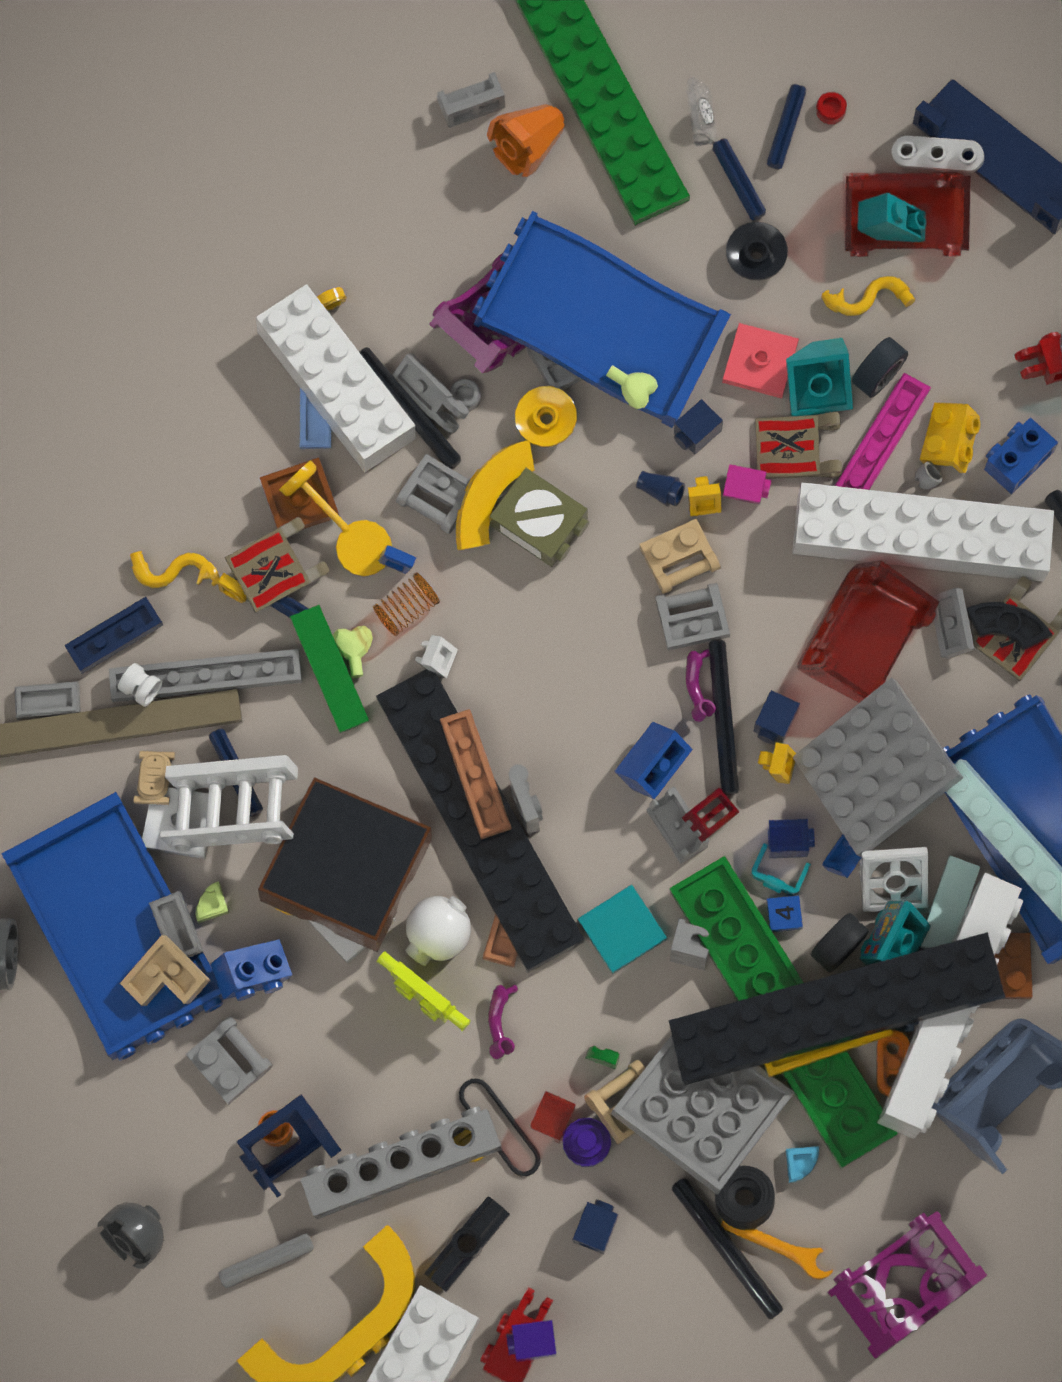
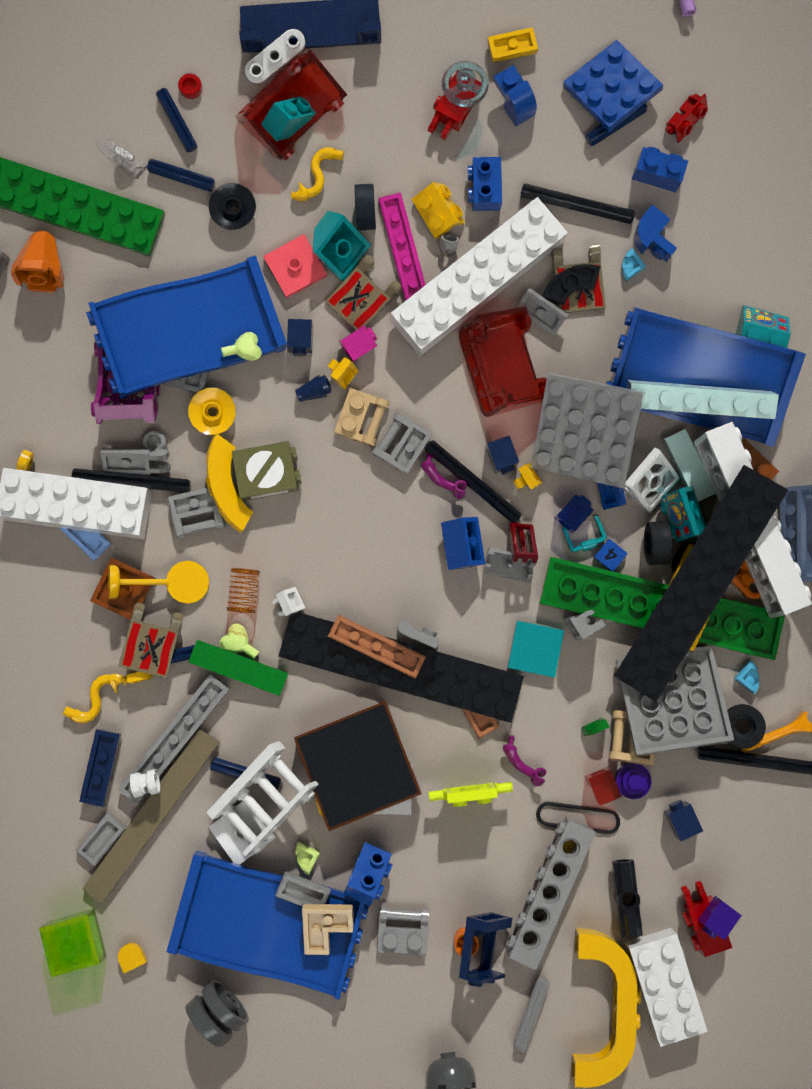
camera: 55 degrees left, 10 degrees up
(151, 781) = (203, 823): tan piece -> none
(397, 559) = (213, 571): blue tile -> none
(437, 929) = (442, 750): white brick -> none

